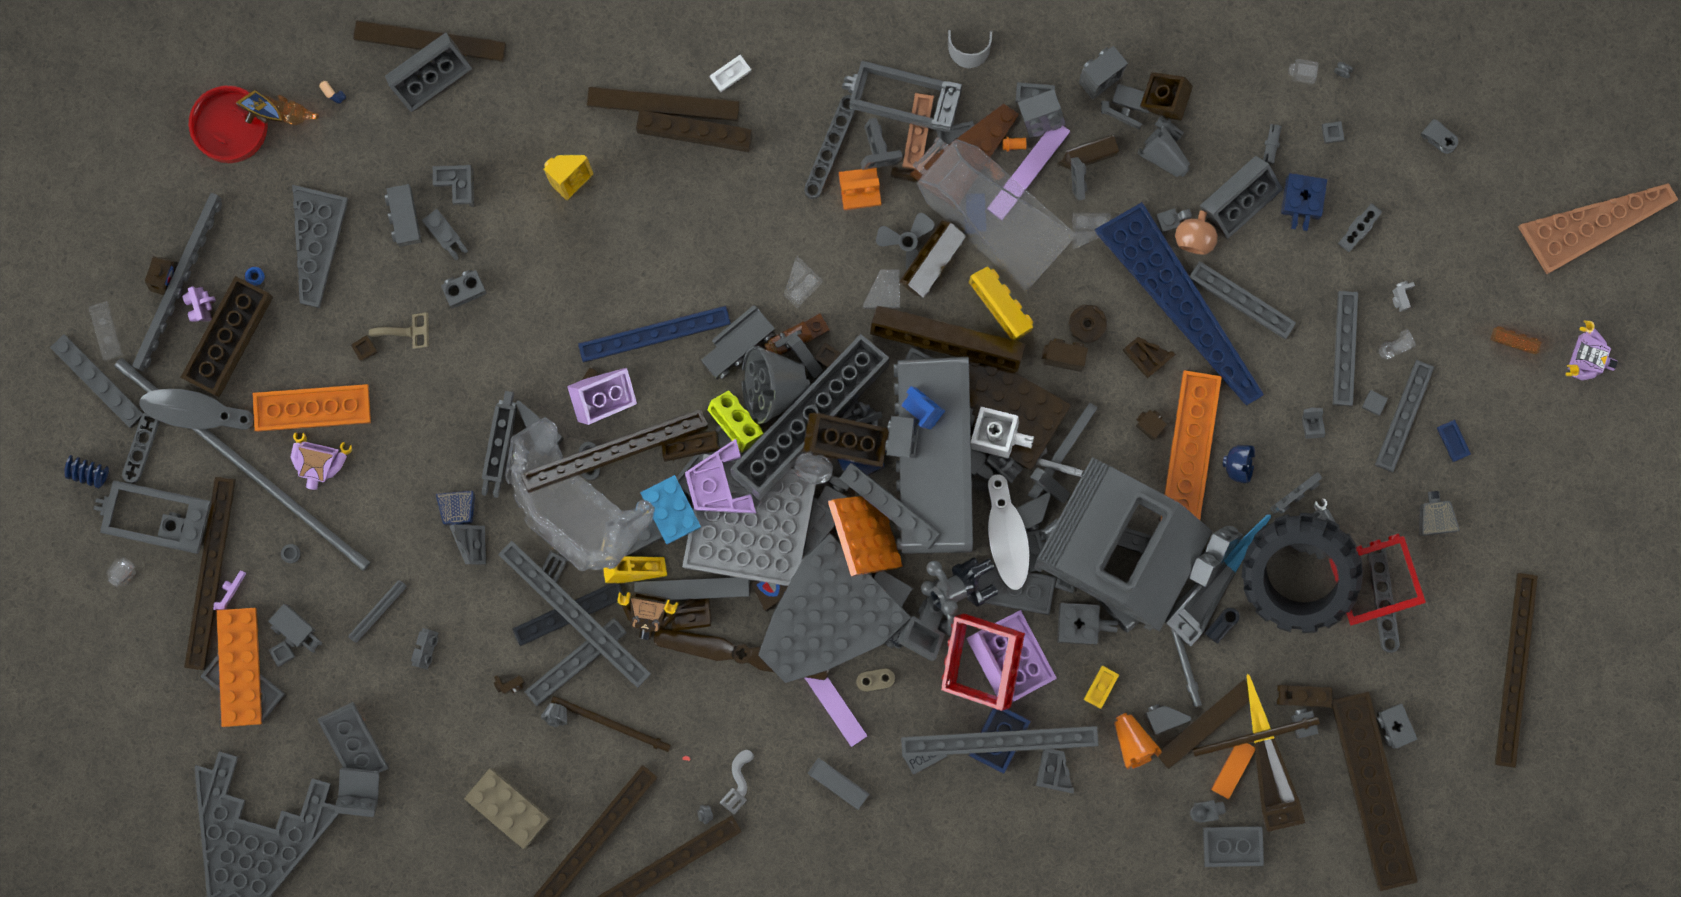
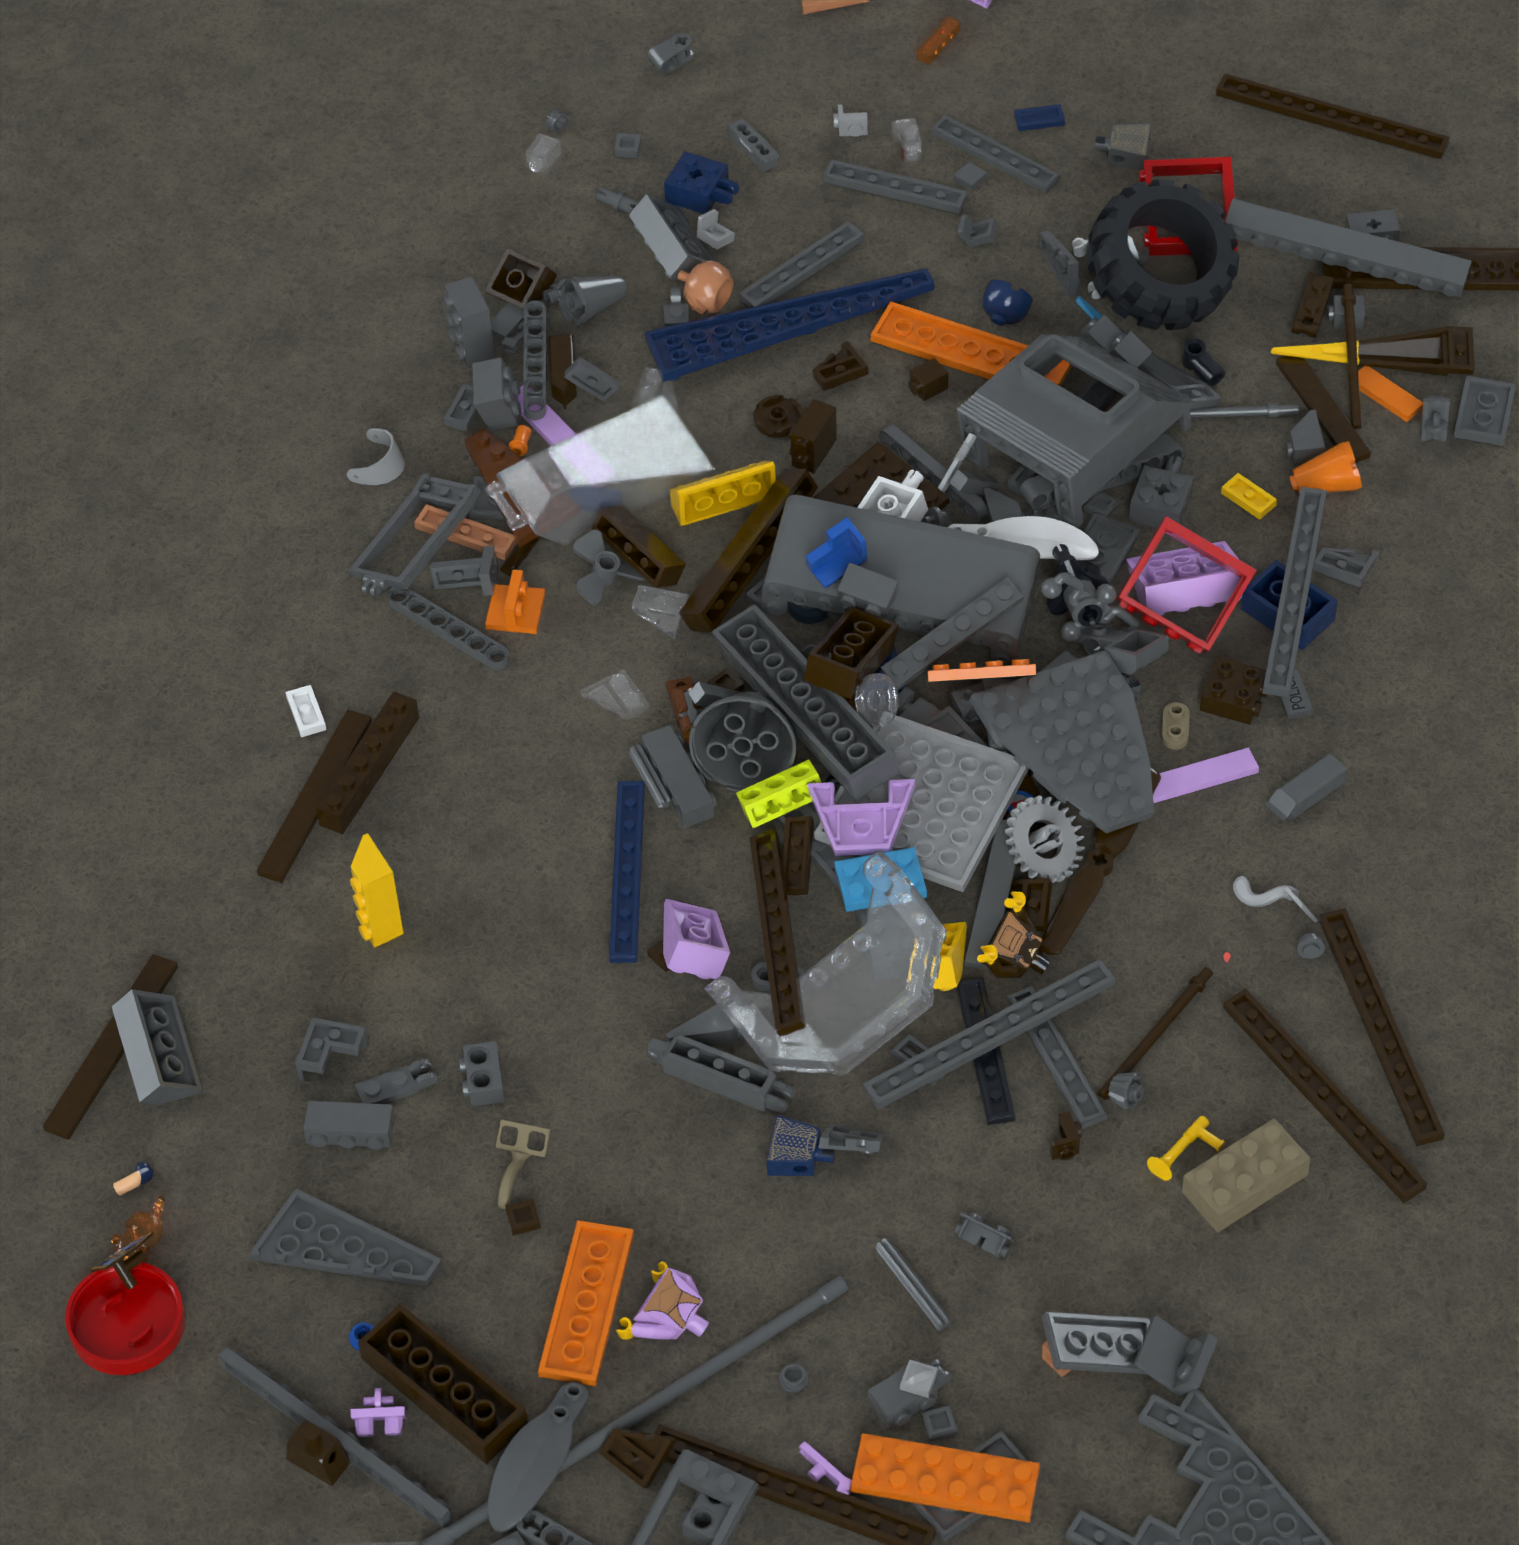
camera: 70 degrees left, 30 degrees down
(209, 471) = (637, 1453): none -> dark brown wing
(296, 634) = (918, 1378): none -> light grey tile
(537, 766) = (1161, 1166): none -> yellow piece
(737, 623) = (1063, 837): none -> light grey gear
(913, 715) = (1233, 691): none -> dark brown brick
(1088, 128) = (531, 360): none -> dark grey beam
(1257, 224) = (712, 232): none -> light grey bracket
(1359, 711) = (1348, 248): none -> dark grey brick

